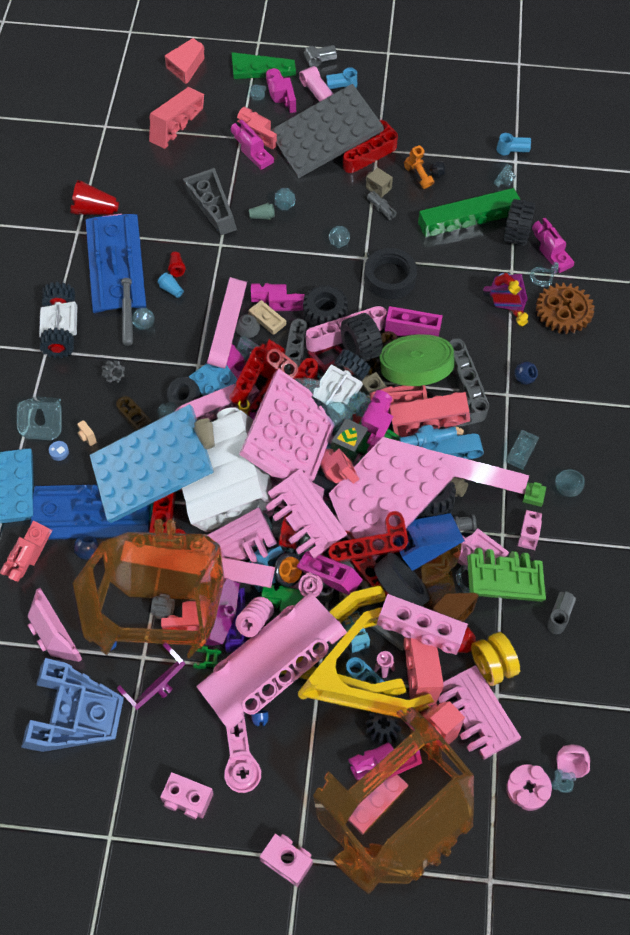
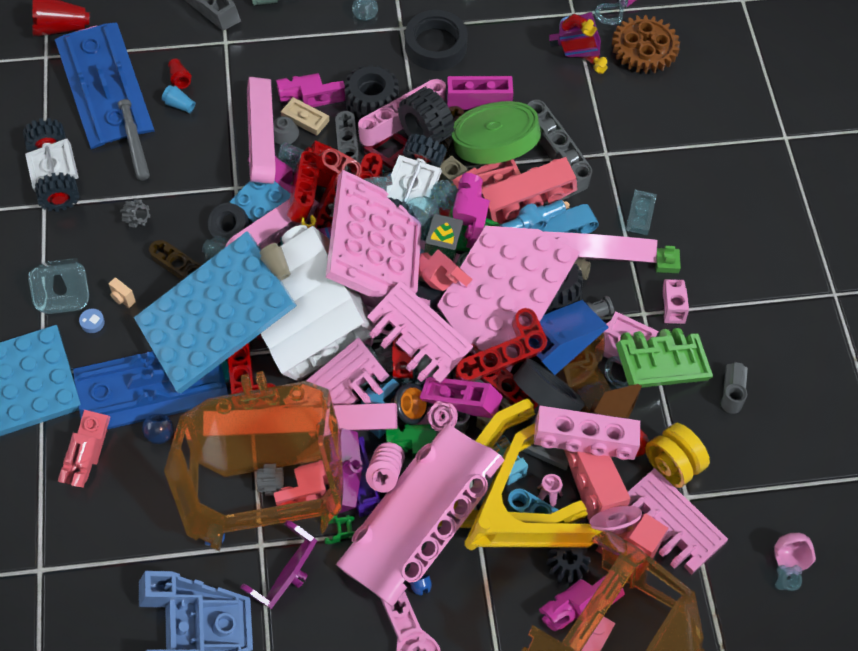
camera: 15 degrees left, 0 degrees up
(50, 629) = (140, 537): bright pink wedge -> none
(143, 319) = (155, 145): clear light blue piece -> none
(425, 700) = (616, 519): none -> bright pink dish
(522, 797) = (757, 580): bright pink plate -> none
(526, 373) = (622, 124): dark blue piece -> none
(570, 483) = (705, 239): clear light blue hair -> none

